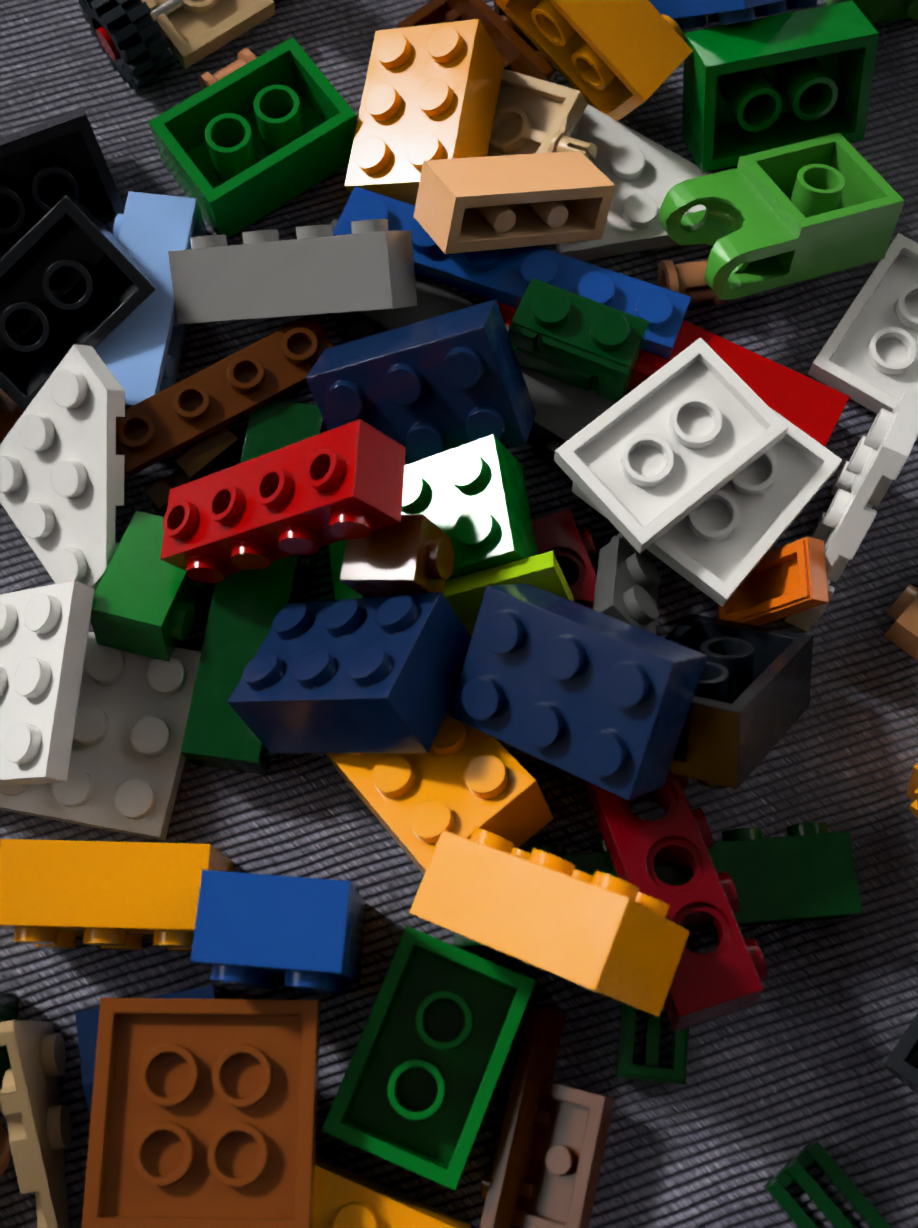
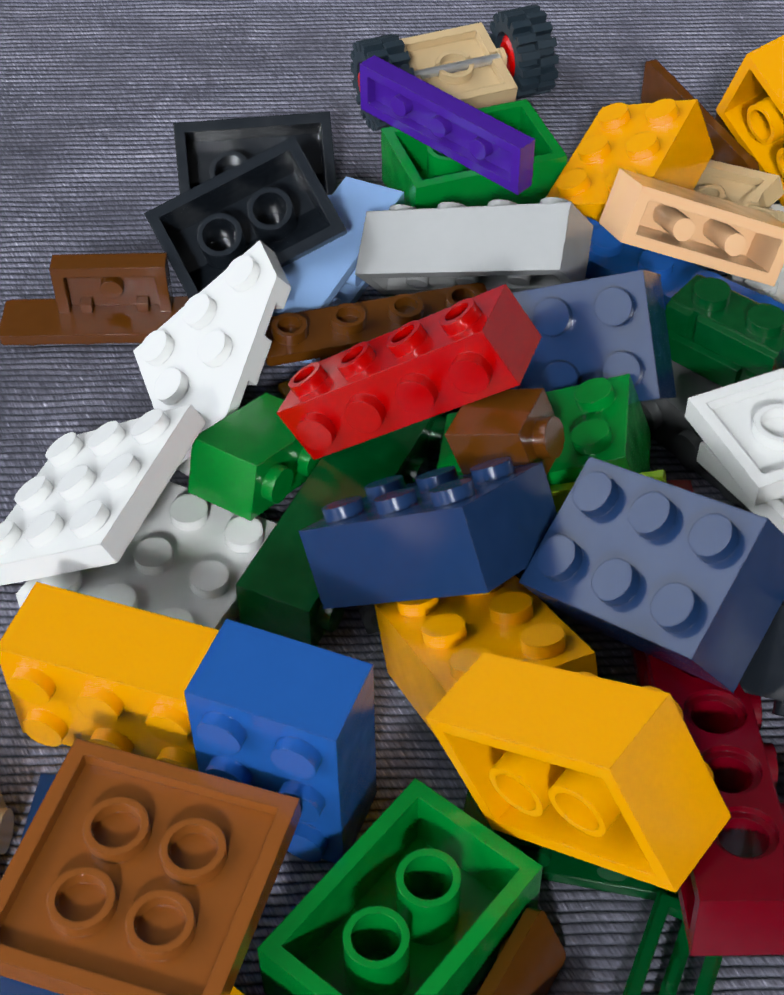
camera: 15 degrees right, 25 degrees down
(218, 113) = (447, 124): none -> dark purple plate

